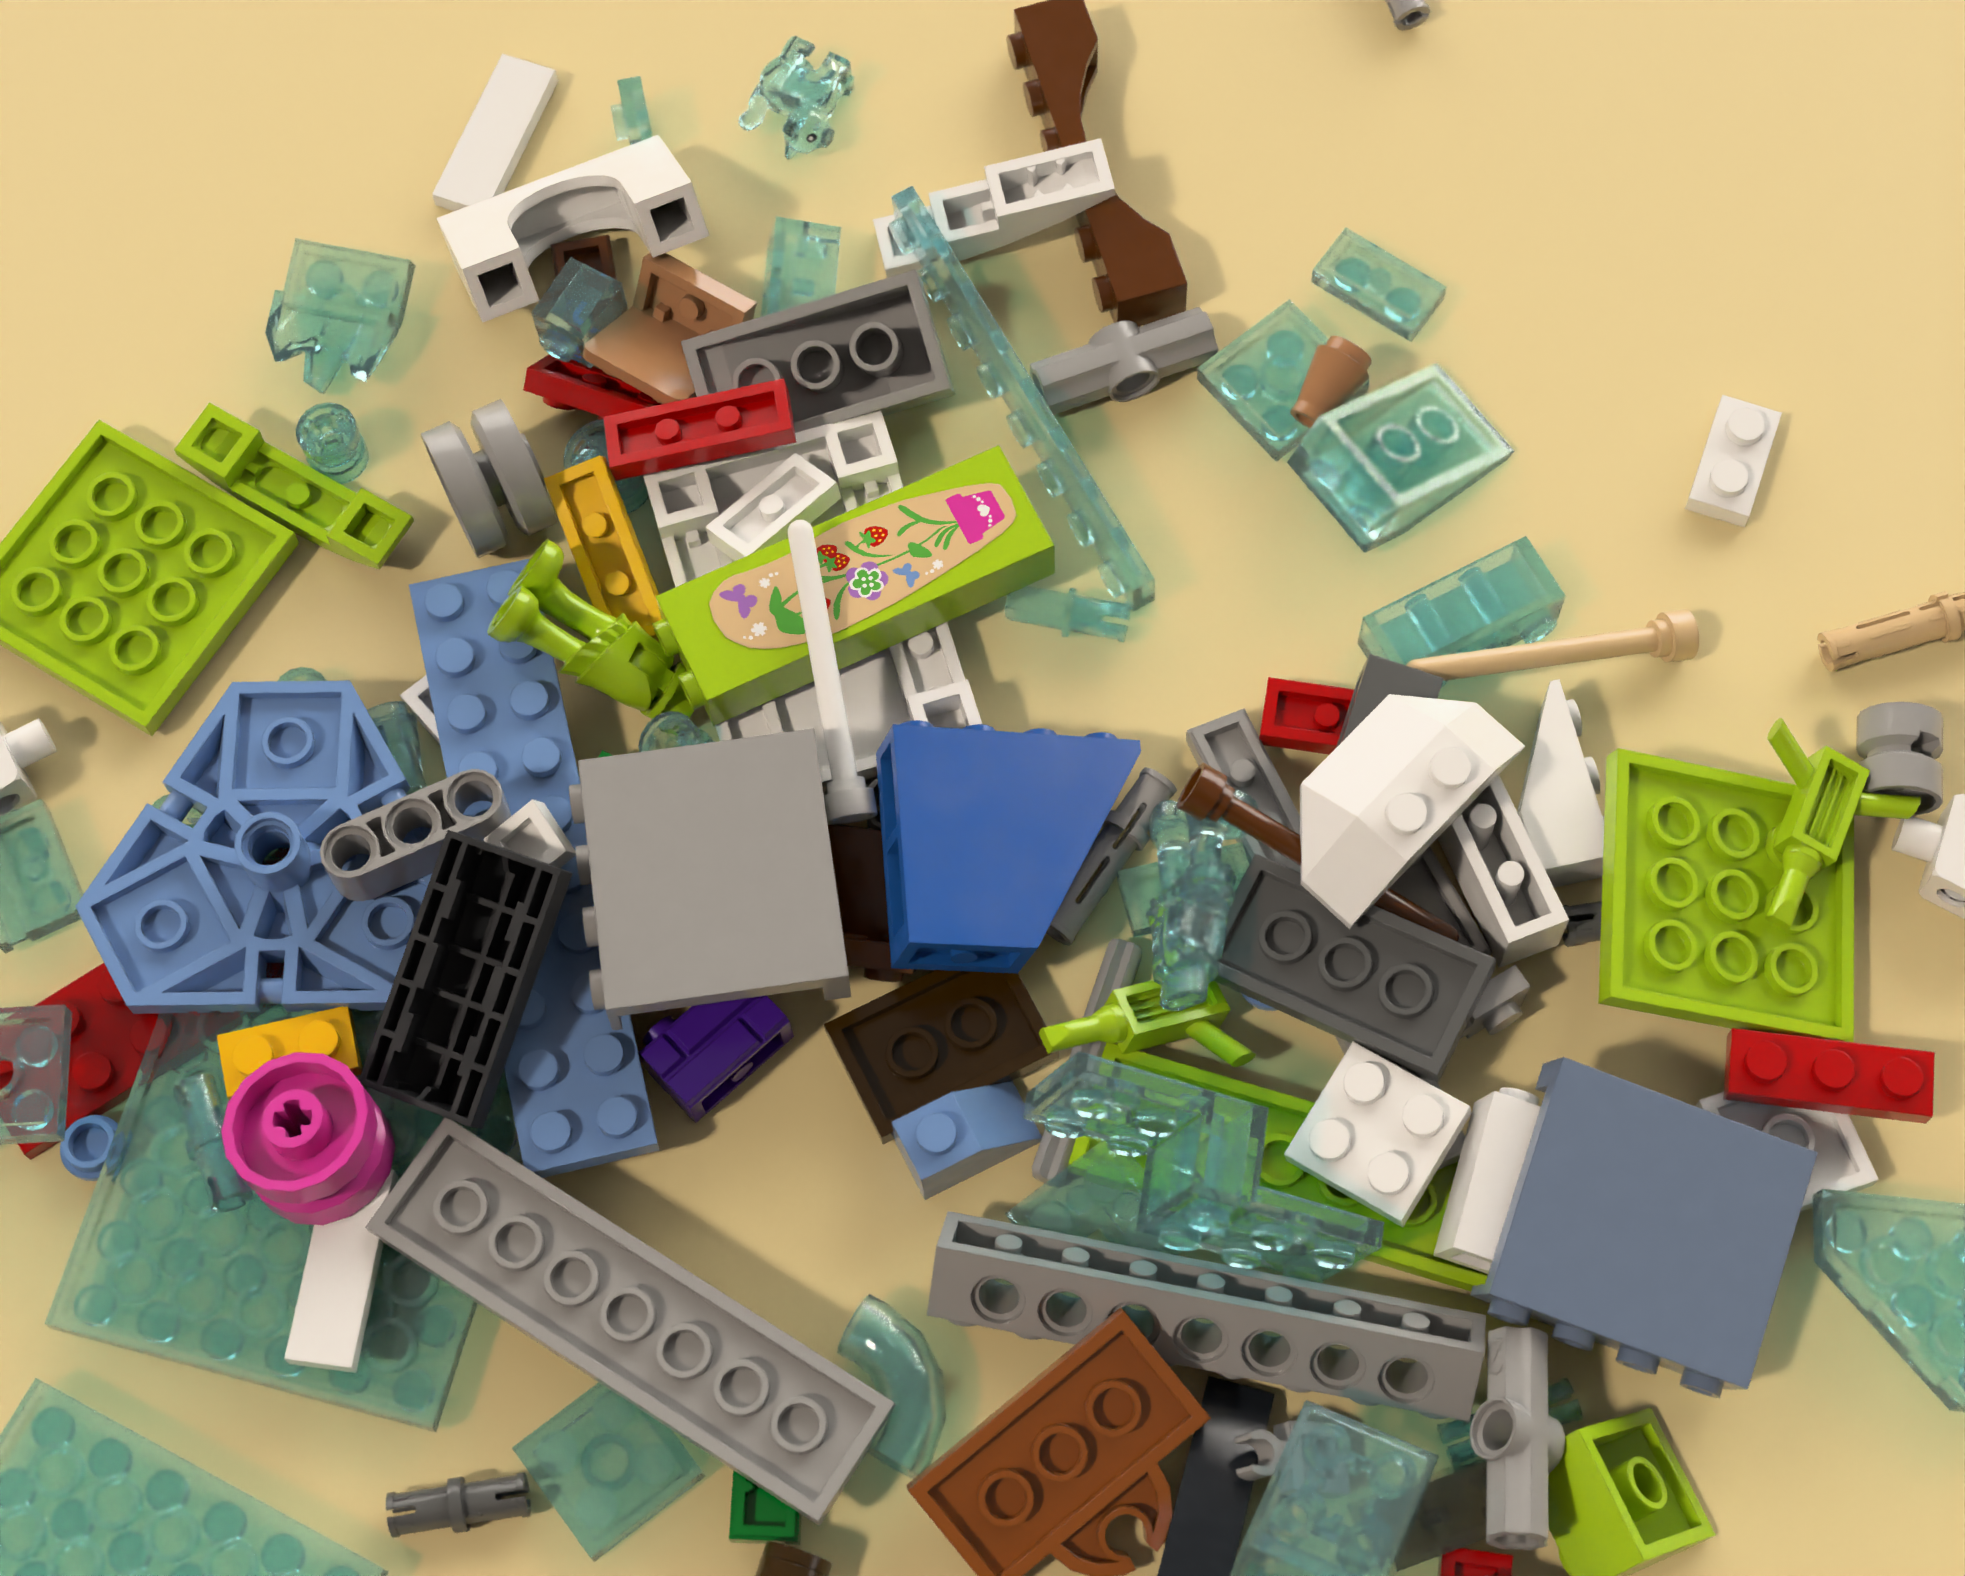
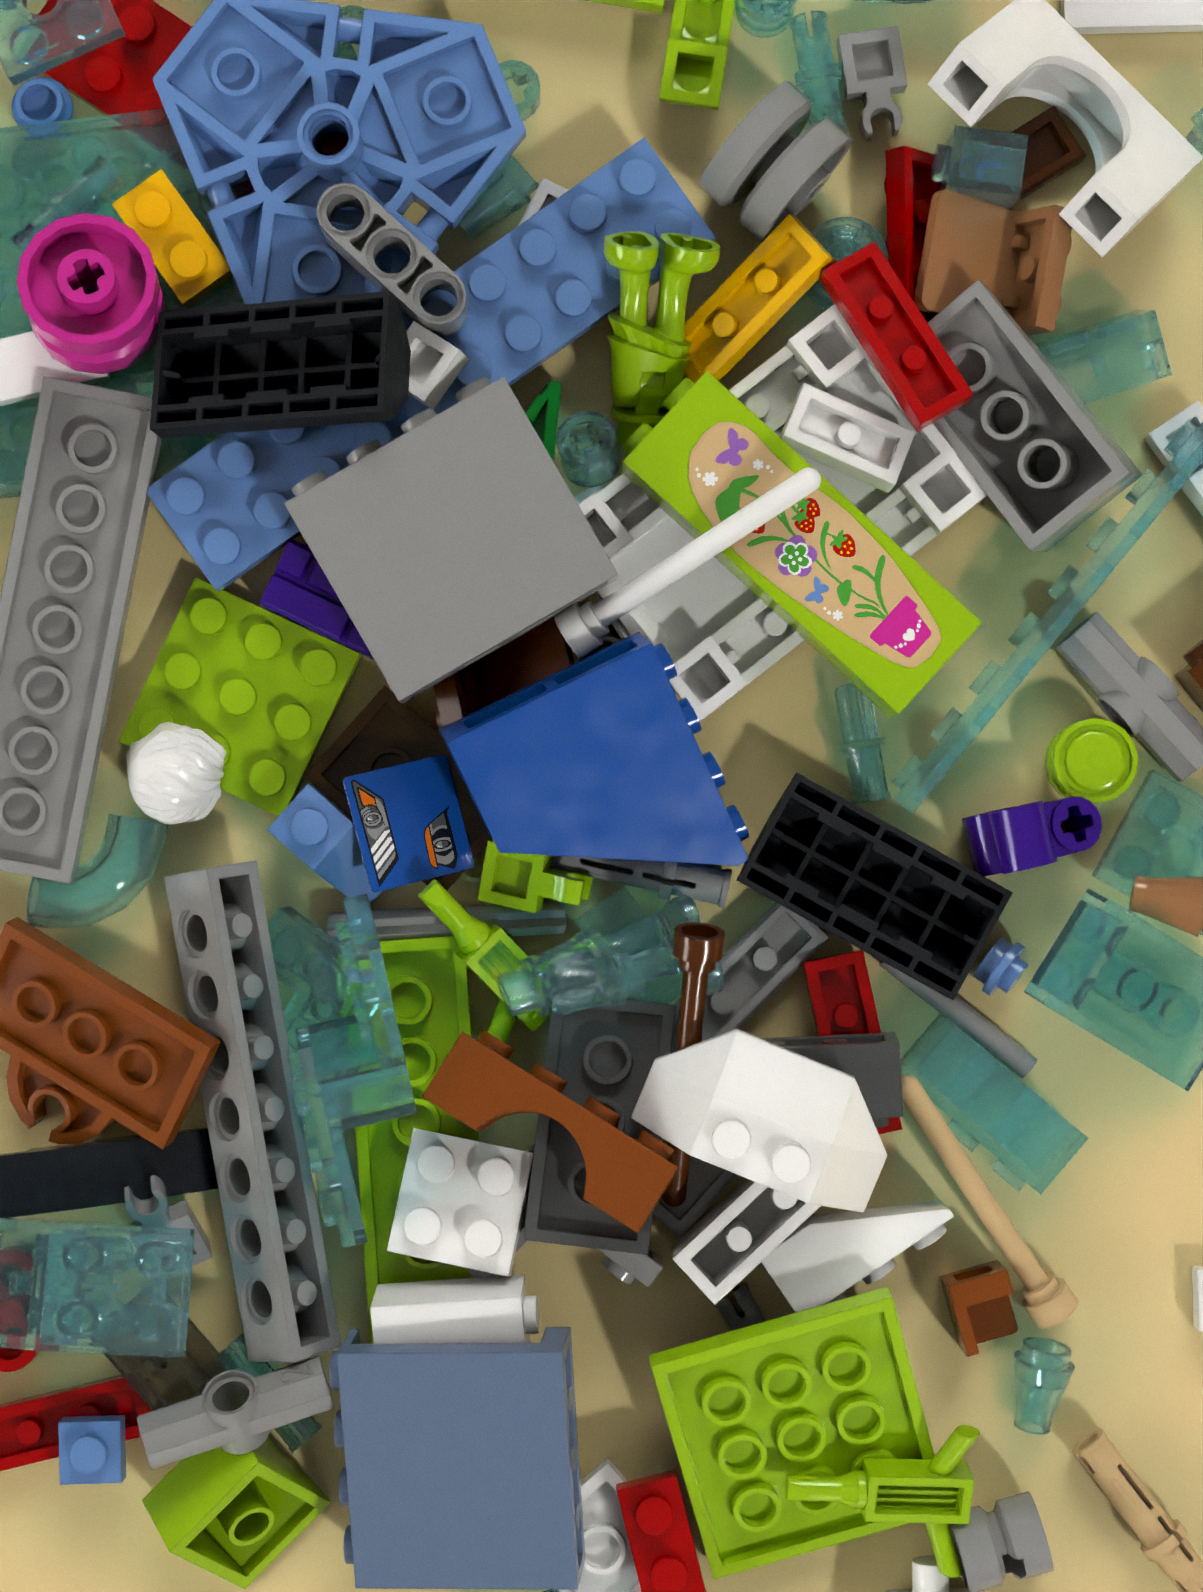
camera: 65 degrees right, 20 degrees up
(406, 424) = (817, 70): none -> clear light blue pin
(445, 378) = (873, 72): none -> light grey plate
(775, 1181) = (251, 687): none -> lime plate
(823, 1261) = (175, 773): none -> white hair
(971, 1044) = (408, 823): none -> blue sticker
(1069, 960) = (525, 880): none -> lime plate
(1168, 421) = (1091, 760): none -> lime wheel
(1207, 643) = (874, 886): none -> black piece
(1214, 491) = (1030, 834): none -> dark purple piece
(1333, 564) = (1001, 967): none -> medium blue plate
(1344, 630) = (972, 1024): none -> light grey bar
(1399, 946) = (483, 1086): none -> dark orange arch
(1655, 702) = (979, 1304): none -> dark orange panel
(1753, 672) = (1040, 1381): none -> clear light blue cone

